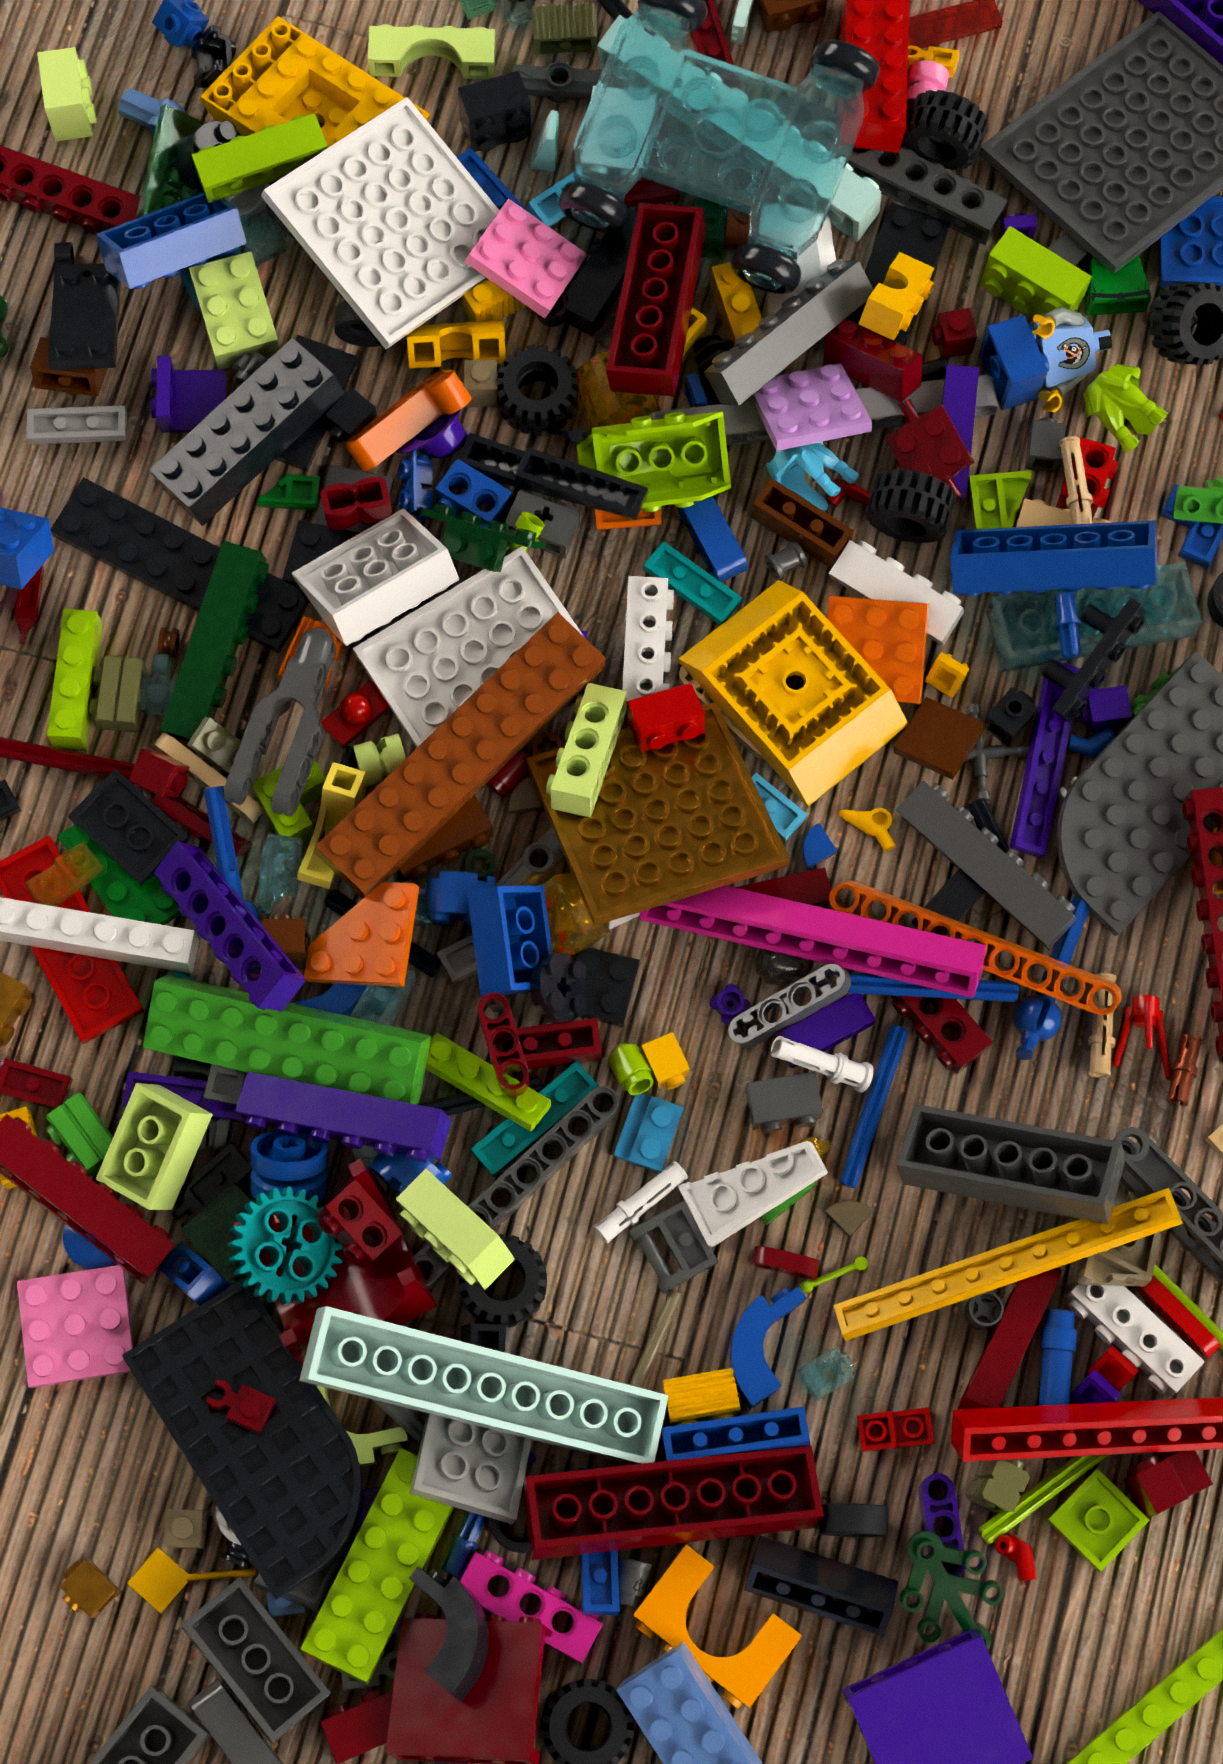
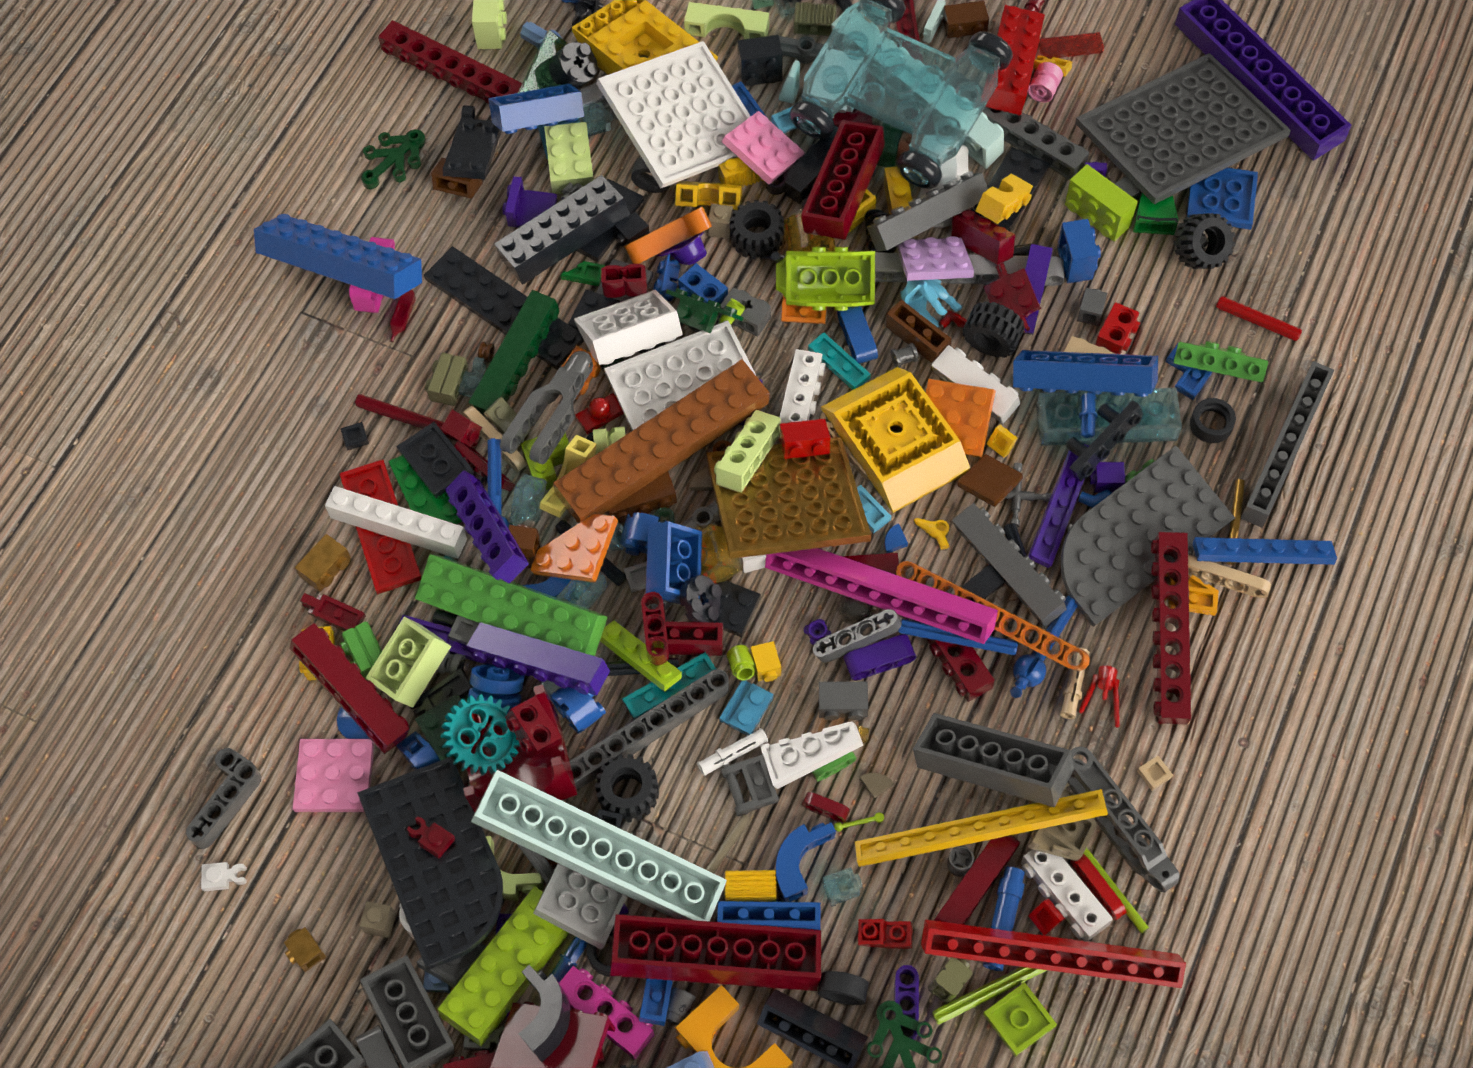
camera: 15 degrees right, 10 degrees down
(65, 877) = (390, 484): clear yellow slope -> none
(74, 679) = (418, 366): lime brick -> none
(76, 424) = (454, 214): light grey plate -> none
(162, 1579) = (356, 953): yellow piece -> none
(236, 1554) = (409, 943): black bush -> none
(259, 157) = (589, 65): lime brick -> none
(454, 1230) = (597, 743): yellowish green brick -> none
(510, 774) = (693, 463): dark red brick -> none
(553, 476) = (757, 281): black slope -> none
(694, 391) = (860, 241): blue tile -> none
(835, 1067) = (882, 681): white pin -> none
(873, 1106) = (905, 714): blue axle -> none
(945, 129) = (1054, 103): black tyre -> none
(954, 333) = (1041, 229): dark red brick -> none
(997, 498) = (1054, 333): lime wing -> none
(1010, 716) = (1041, 473): black brick -> none
(1018, 1552) = (959, 1033): red arm -> none
(1070, 350) = (1116, 247): torso -> none
(1072, 451) = (1108, 309): tan pin -> none
(1094, 1390) = (1031, 925): dark purple plate -> none
(1117, 396) = (1146, 279): lime piece -> none
(1166, 1482) = (1073, 998): dark red brick -> none
(1184, 1070) = (1128, 721): copper pin -> none

